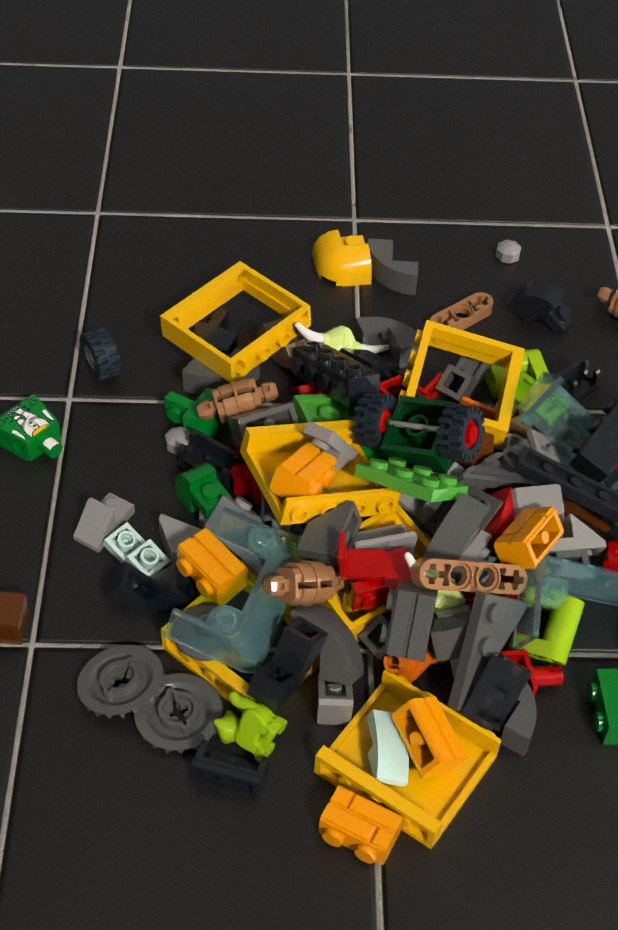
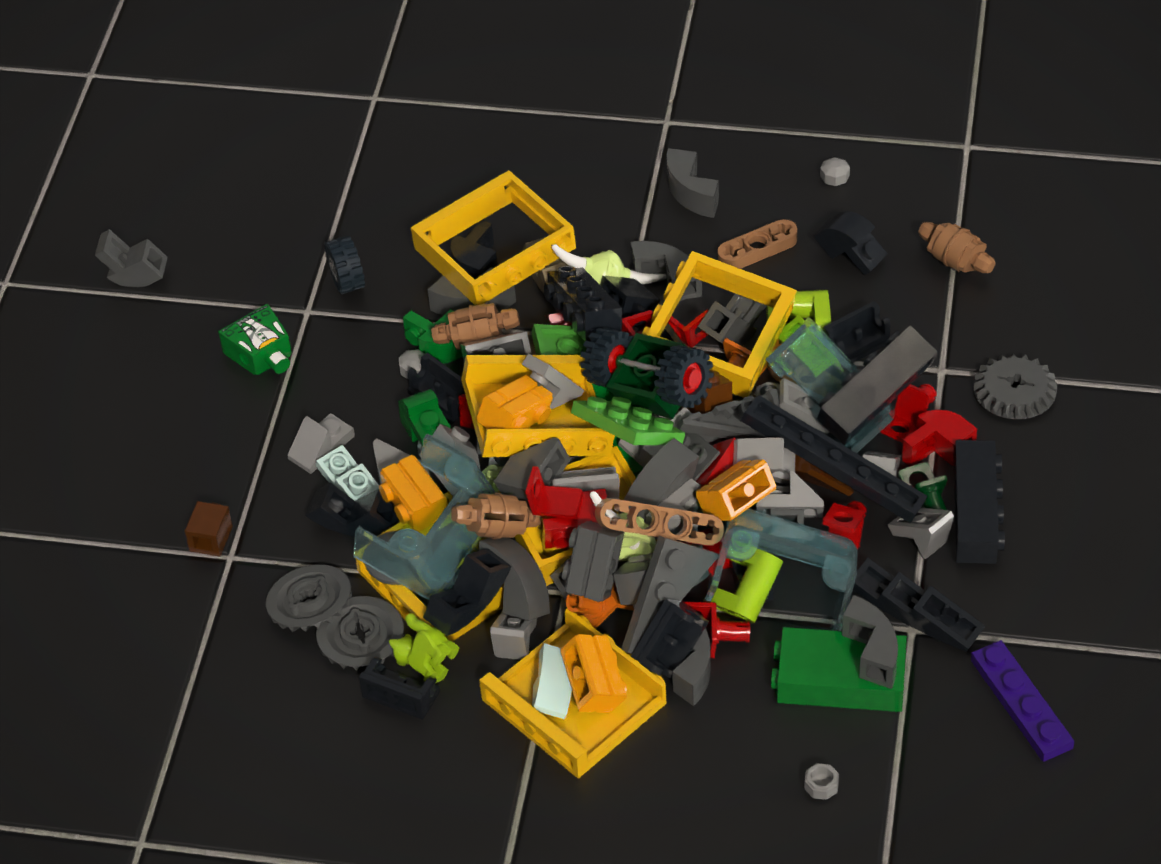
camera: 15 degrees right, 0 degrees up
(342, 259) = (637, 170): yellow brick -> none
(360, 826) = (511, 748): light orange brick -> none

